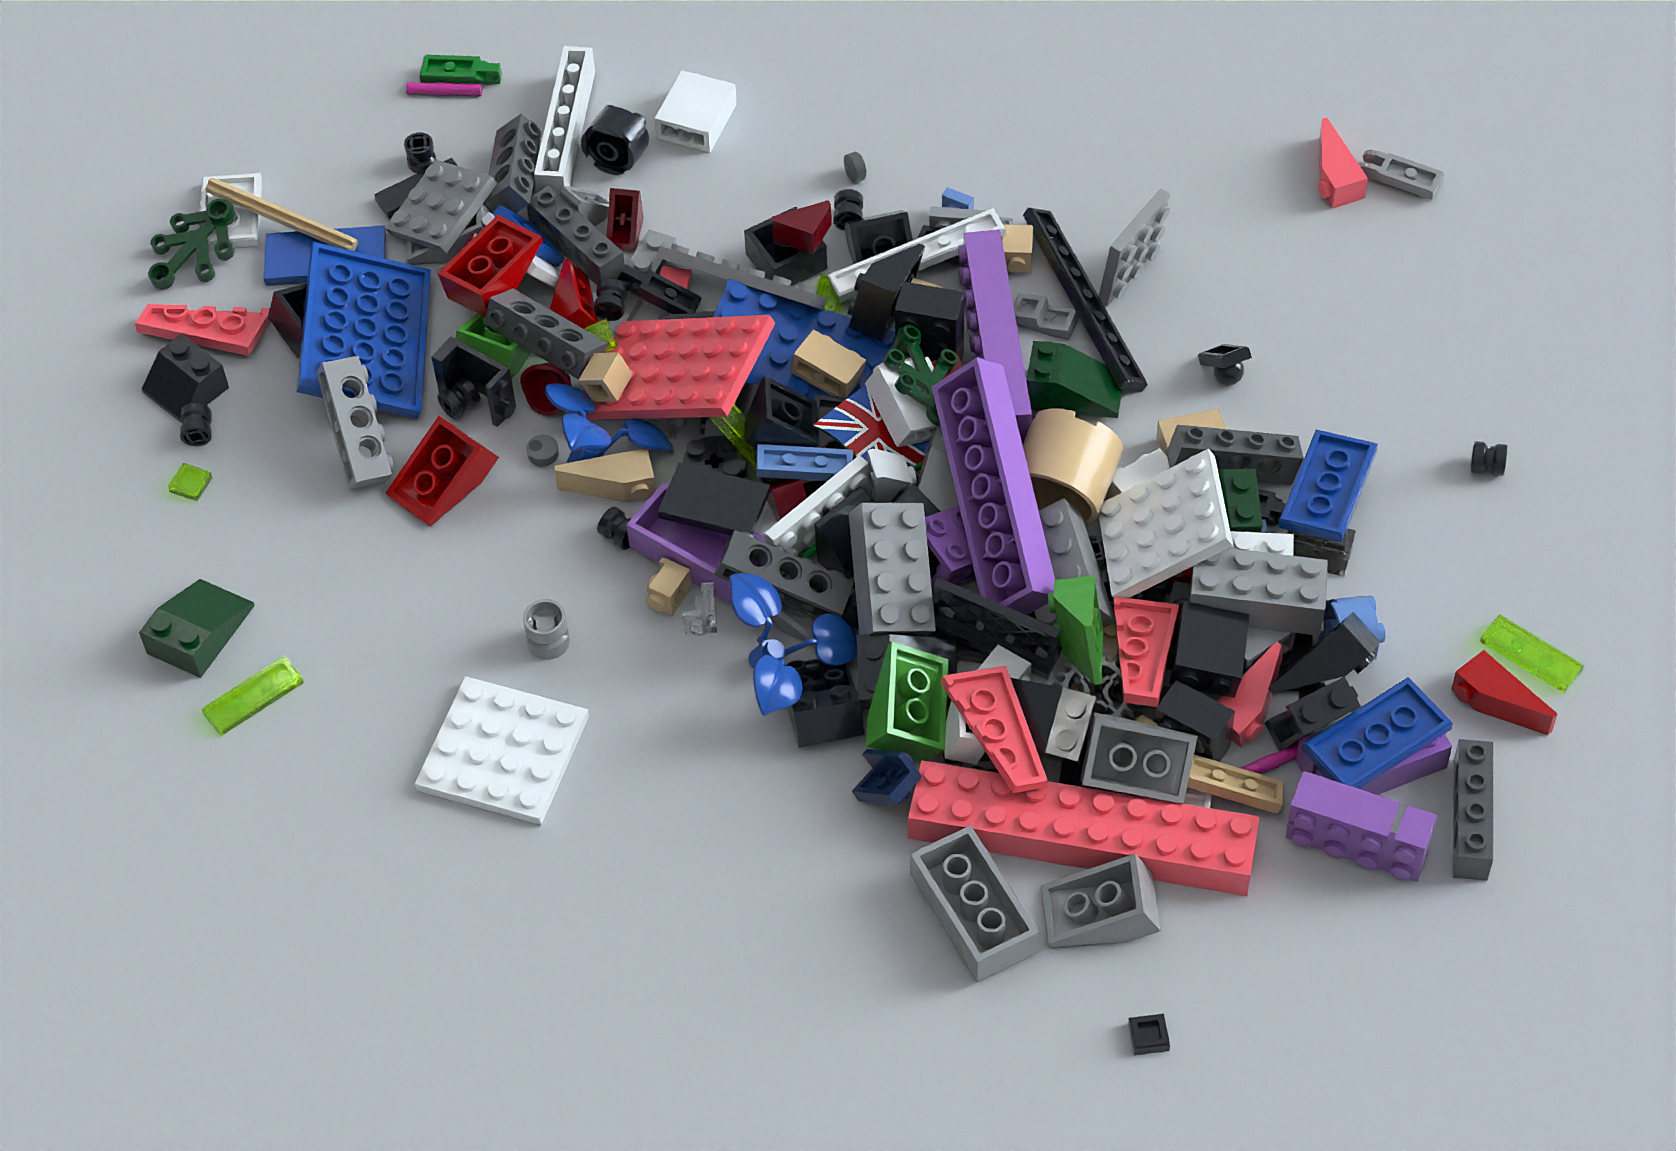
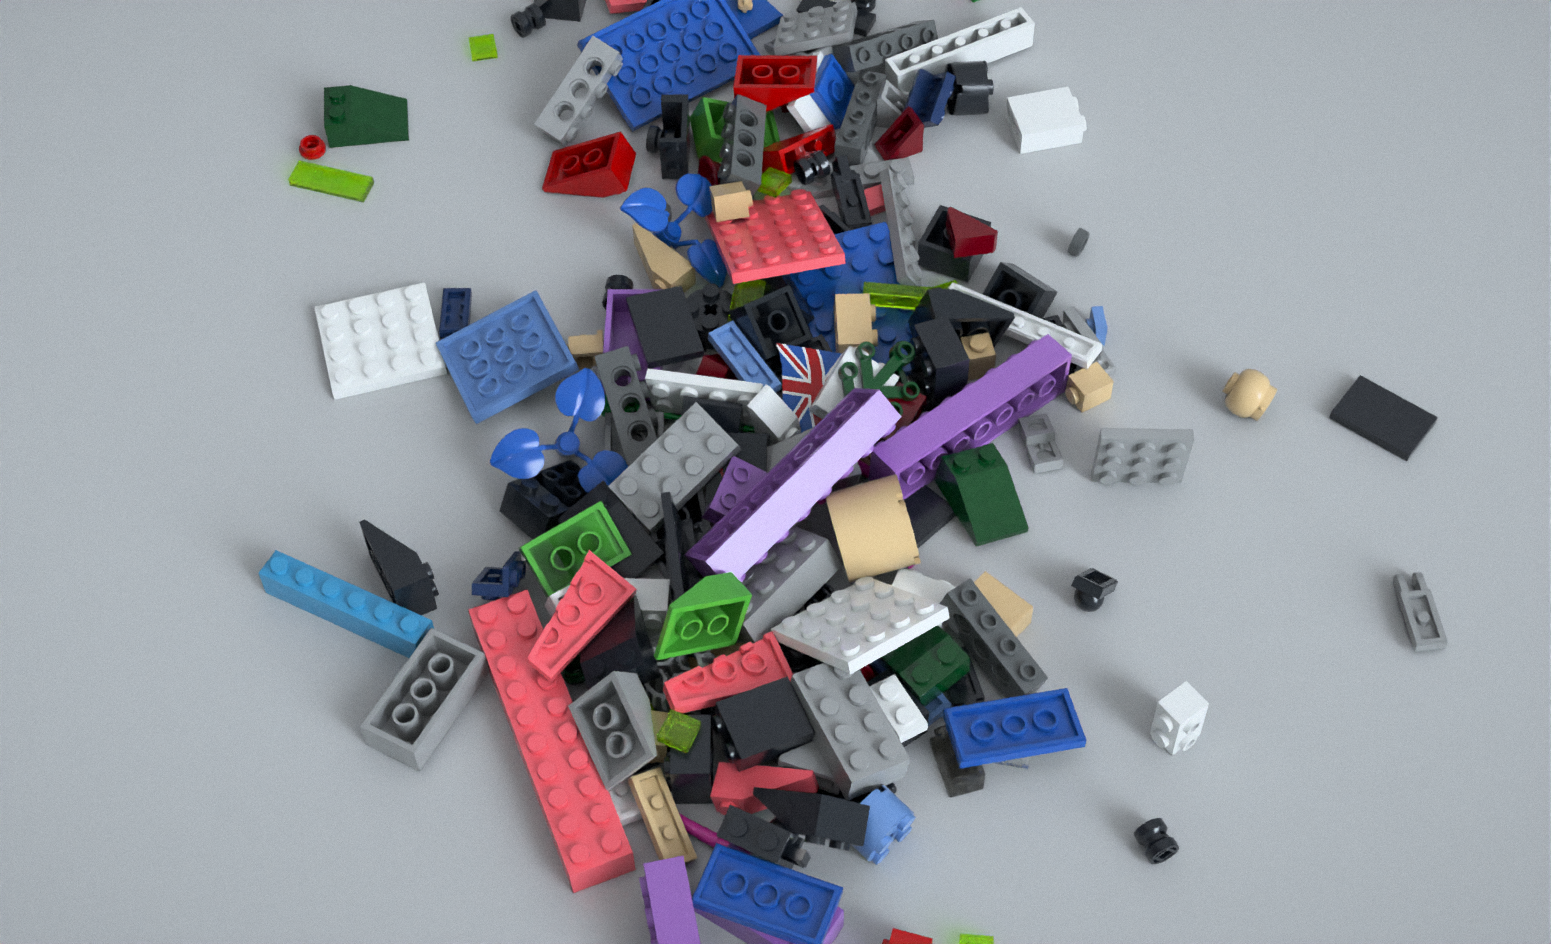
camera: 55 degrees right, 0 degrees up
(190, 683) = (312, 147): none -> red plate
(526, 669) = (455, 310): none -> dark blue plate
(546, 629) = (490, 295): light grey wheel -> none
(607, 167) = (930, 95): none -> dark blue bracket
(628, 648) = (506, 356): none -> medium blue plate
(813, 856) = (401, 571): none -> black slope
(815, 921) = (344, 604): none -> dark azure brick
(828, 311) = (895, 294): none -> clear neon green tile
(847, 207) = (1033, 260): black wheel -> none
(1085, 300) = (1075, 462): black tile -> none
(1102, 904) = (487, 791): light grey slope -> none
(1117, 148) = (1248, 393): none -> tan piece
(1149, 1034) = (391, 890): black tile -> none
(1180, 708) = (679, 731): none -> clear neon green tile
(1200, 83) = (1383, 417): none -> black tile
(1339, 173) = (1376, 559): coral slope -> none
(1397, 374) = (1179, 719): none -> white brick

